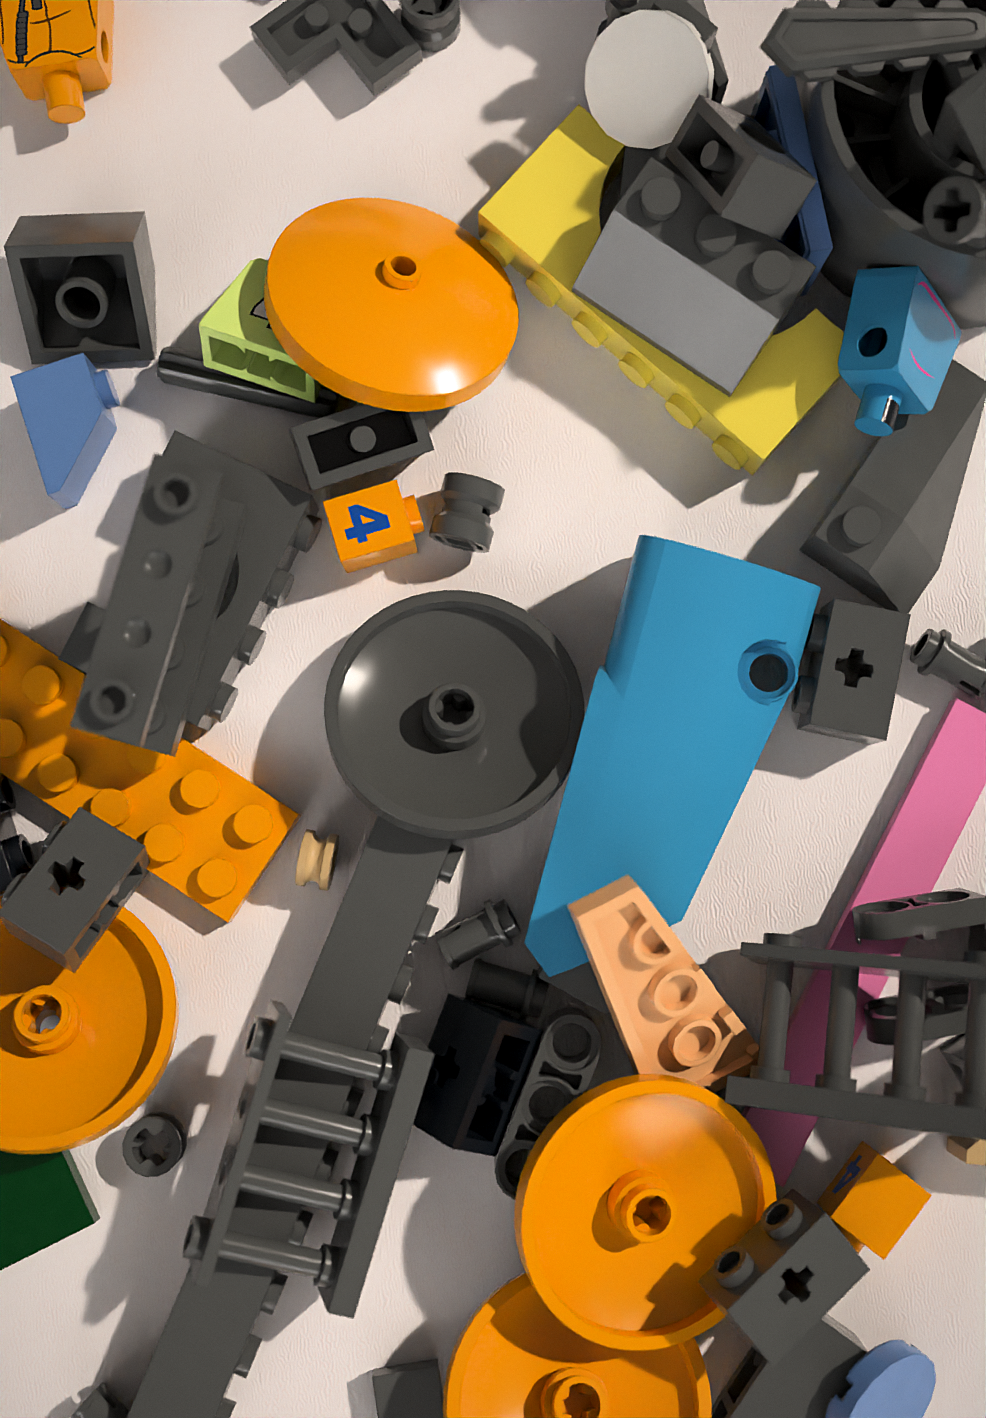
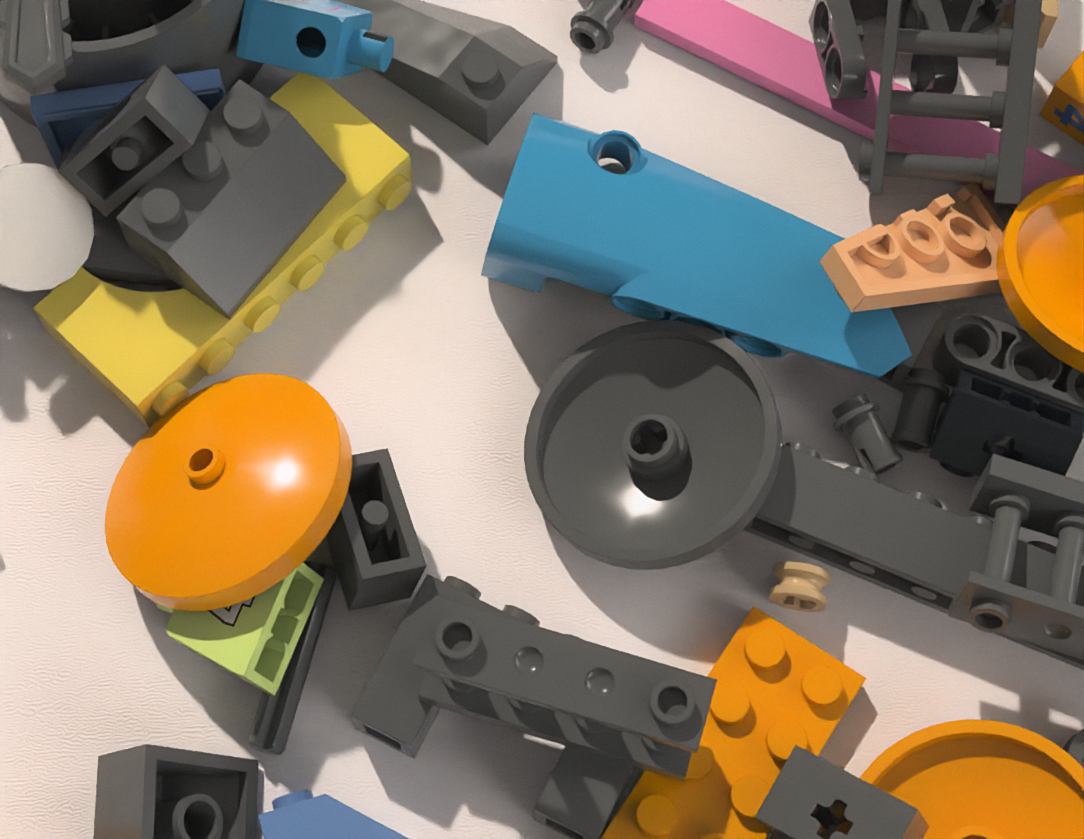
camera: 90 degrees left, 15 degrees down
(373, 525) = (456, 525): light orange brick -> none
(465, 517) = (450, 435): dark grey wheel -> none
(875, 648) = (593, 74): dark grey brick -> none

